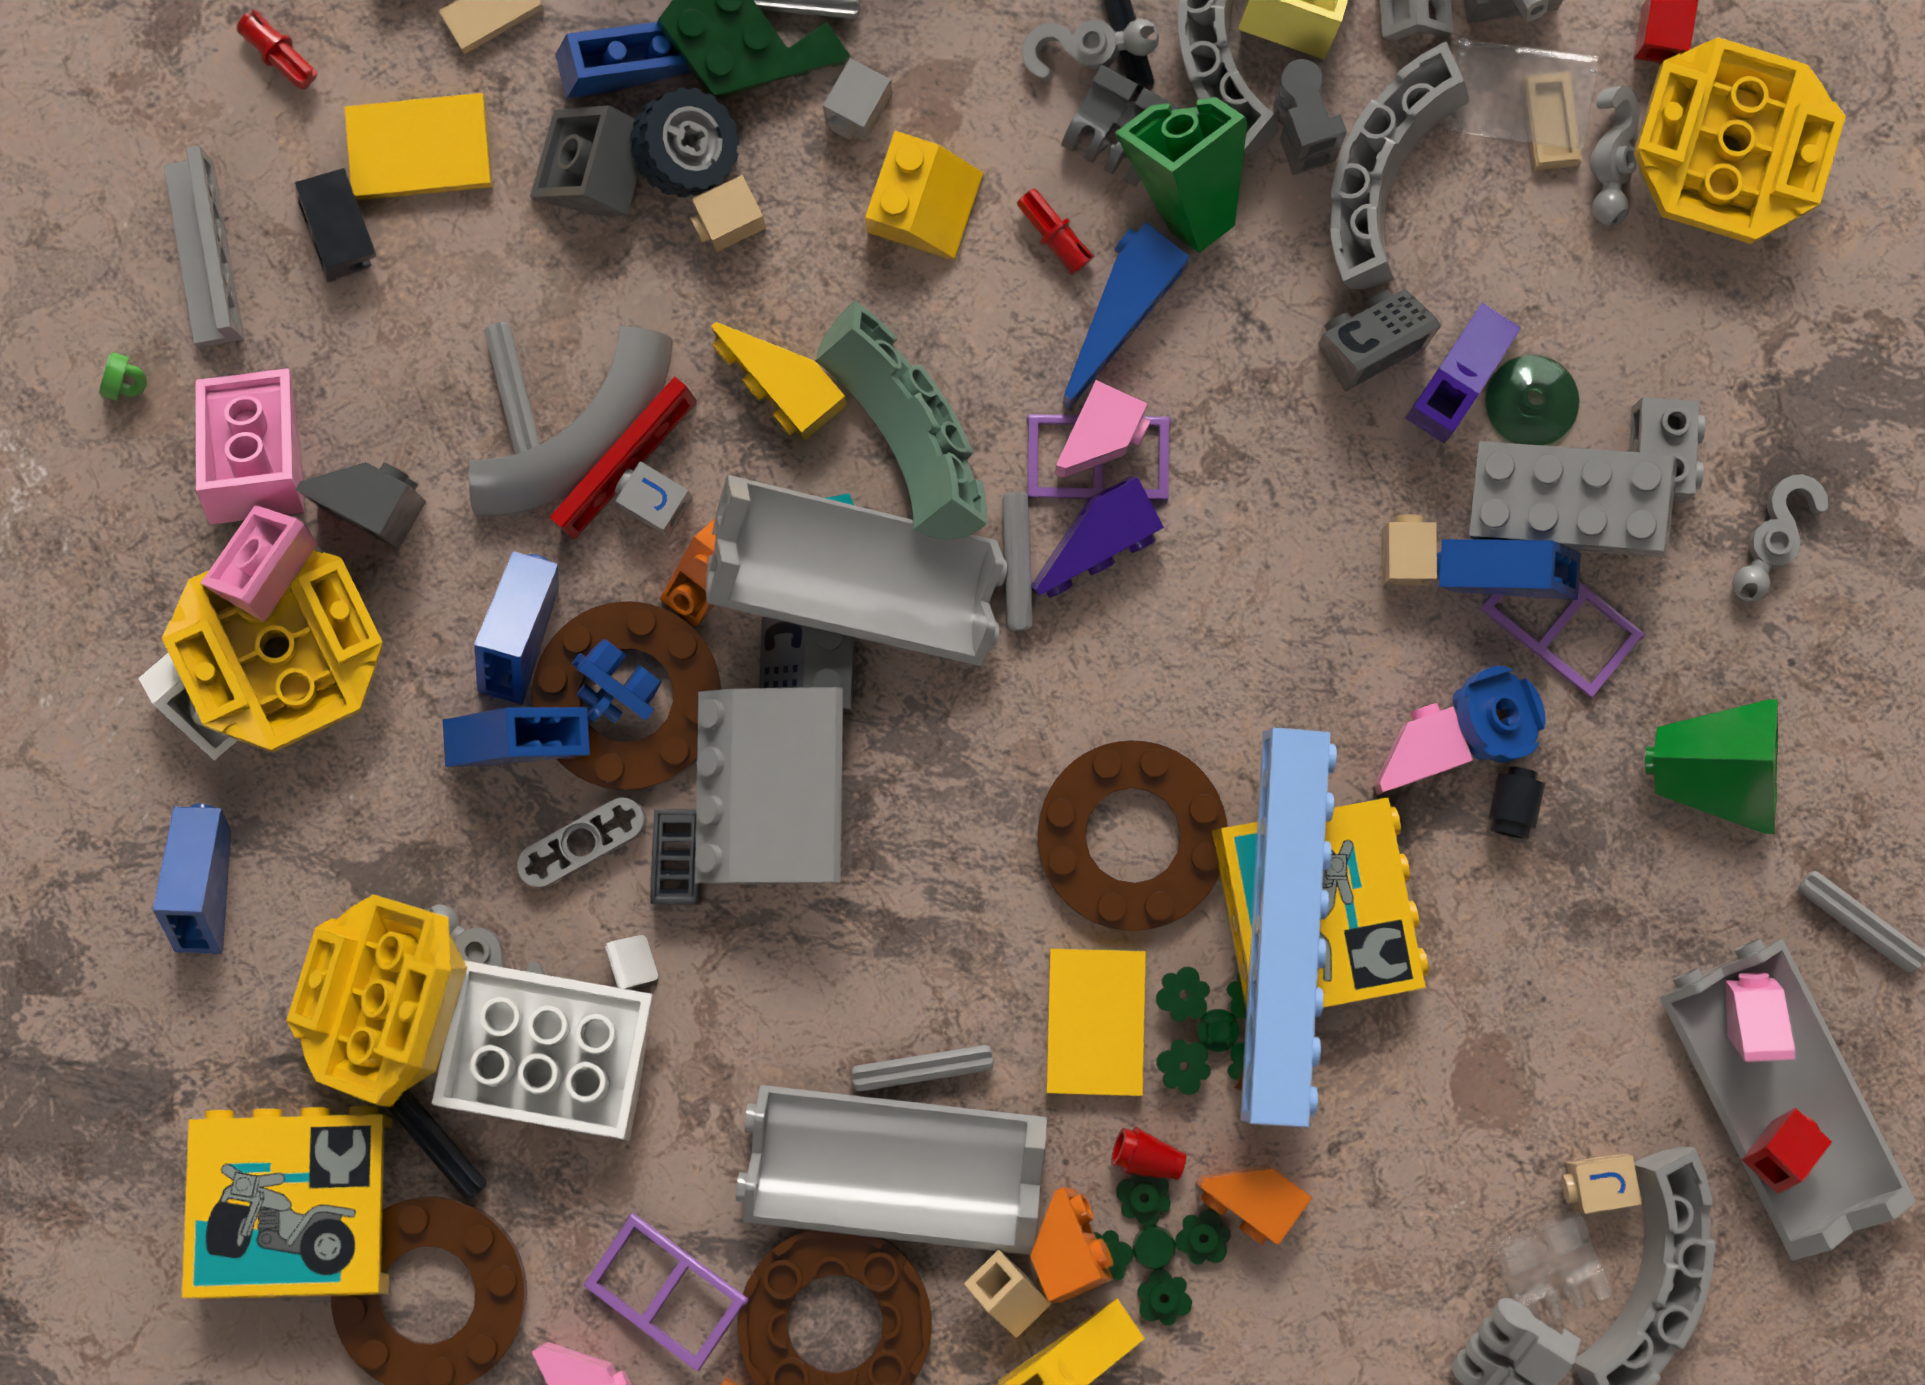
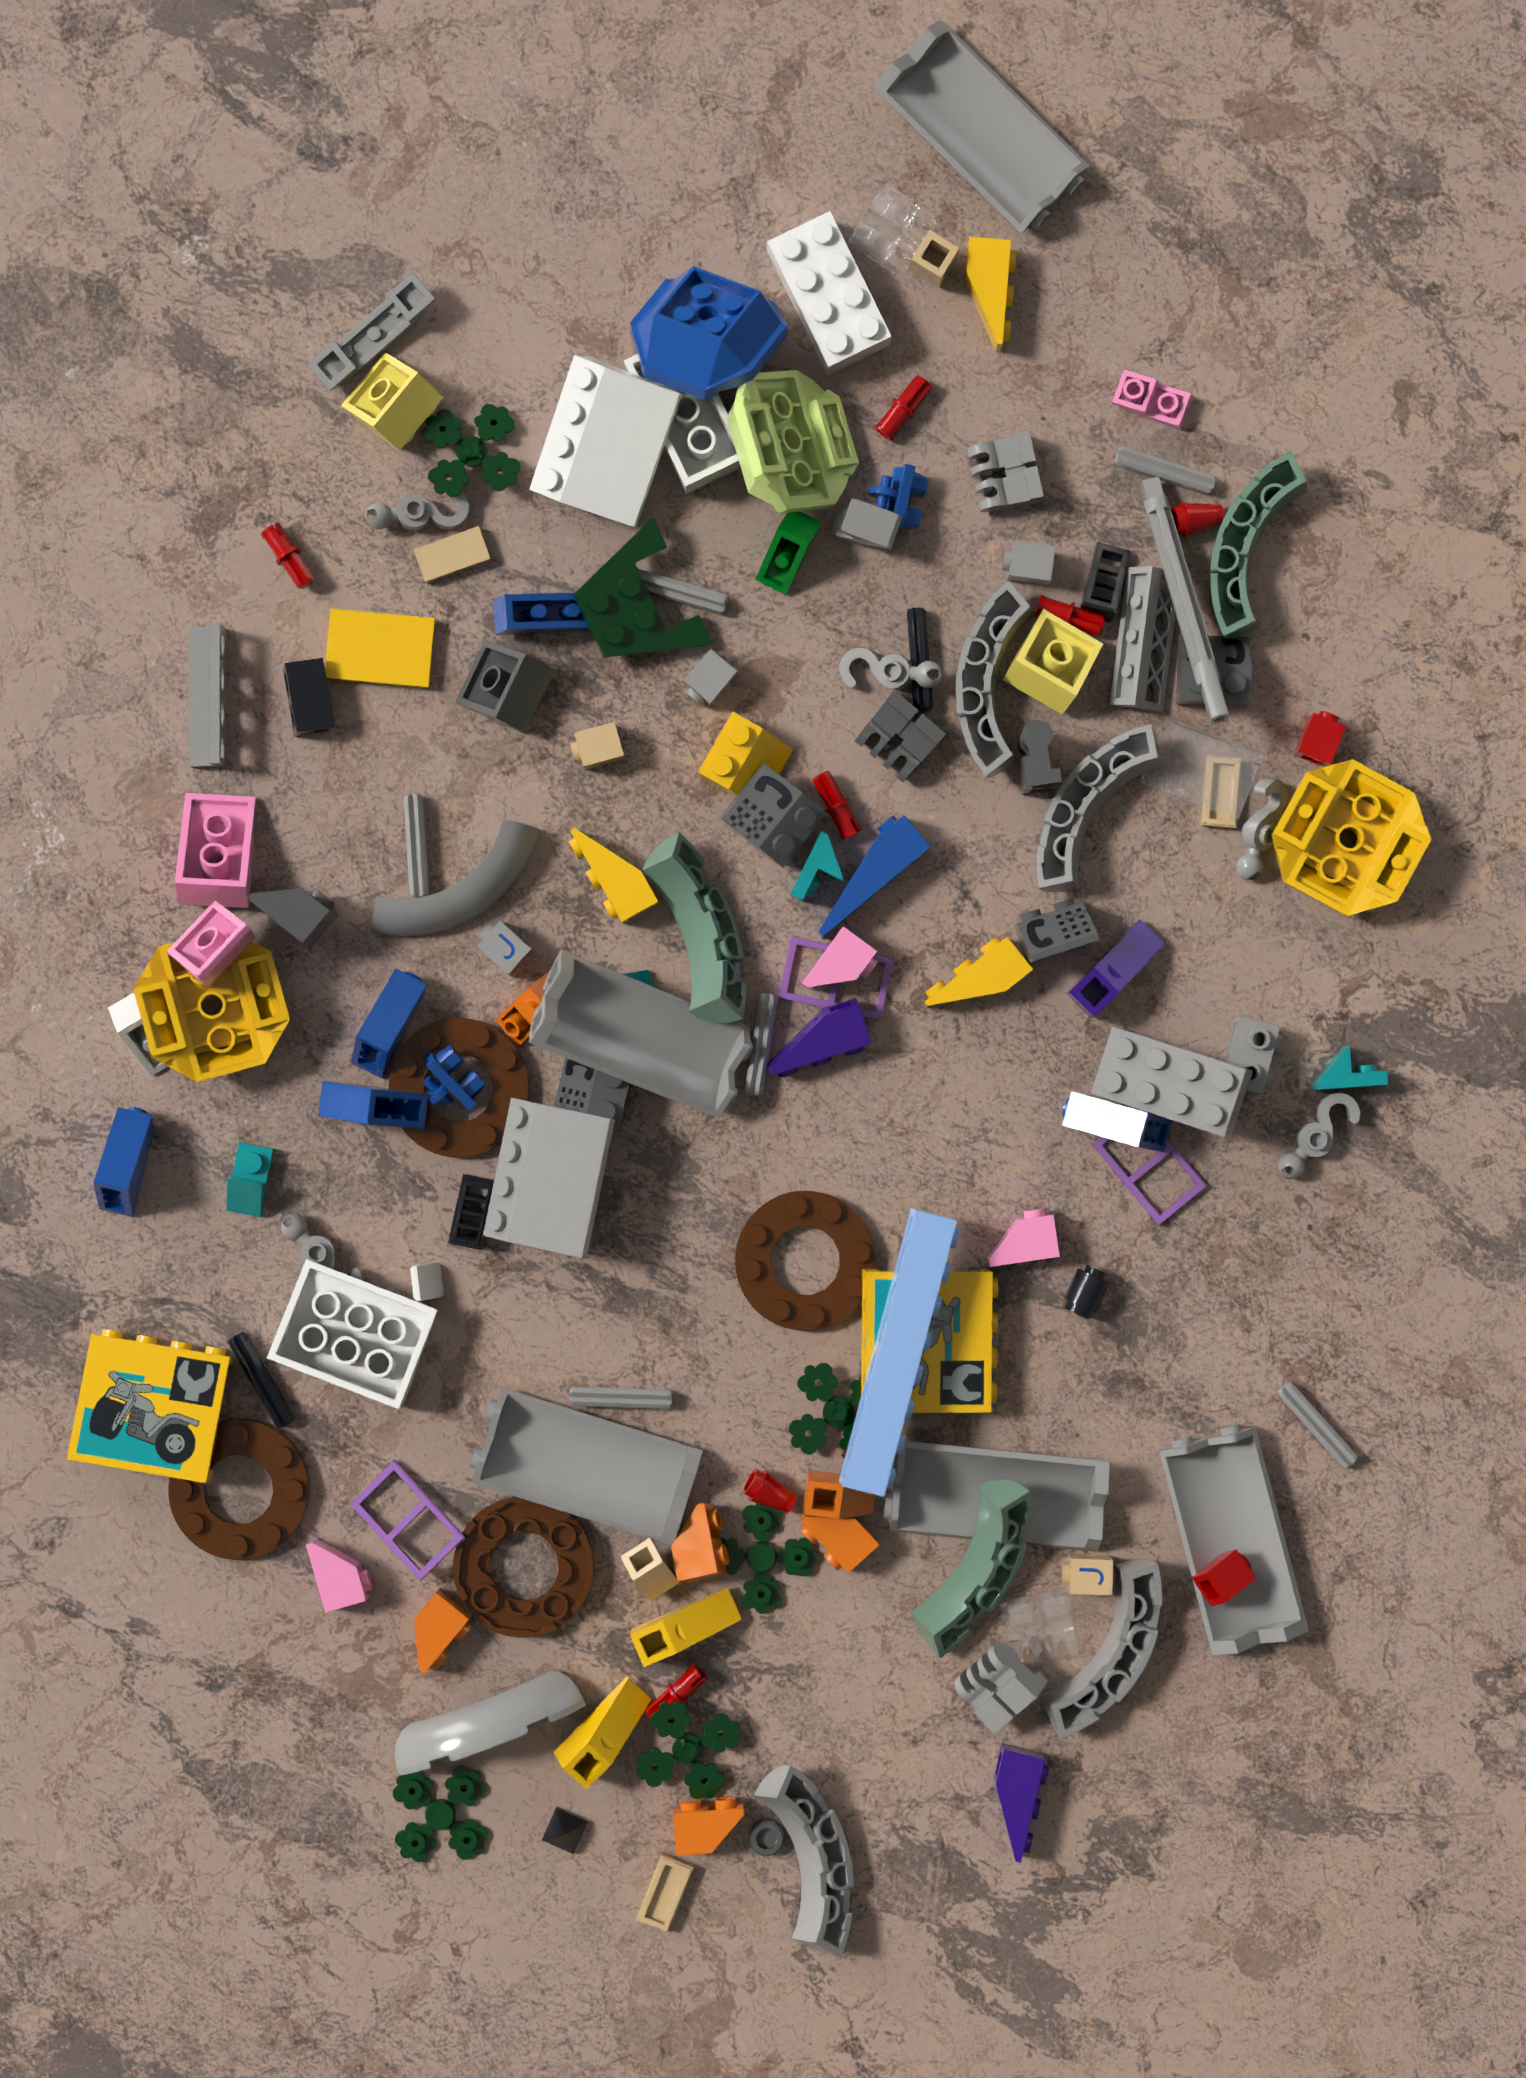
camera: 15 degrees right, 5 degrees up
(113, 377) = (127, 779): bright green tile -> none
(368, 863) = (249, 1179): none -> teal slope
(377, 998) = (240, 1274): yellow piece -> none
(556, 870) = (384, 1205): light grey beam -> none
(632, 447) = (489, 912): red tile -> none
(684, 142) = (576, 688): black wheel -> none
(974, 256) = (773, 815): none -> dark grey slope
(1048, 306) = (820, 859): none -> teal slope
(1096, 1022) = (751, 1389): yellow tile -> none
(1190, 165) = (943, 779): green slope -> none
(1237, 1146) = (829, 1499): none -> orange slope
(1300, 412) = (989, 975): none -> yellow slope
(1409, 551) = (1047, 1093): tan brick -> none
(1459, 1100) = (940, 1496): none -> light grey cylinder
(1460, 1203) = (983, 1571): none -> sand green brick
(1478, 718) = (1070, 1231): blue plate -> none
(1516, 416) = (1144, 998): clear green dish -> none
(1721, 764) = (1240, 1293): green slope -> none
(1758, 1018) = (1222, 1481): bright pink slope -> none
(1790, 452) = (1339, 1073): none -> teal slope

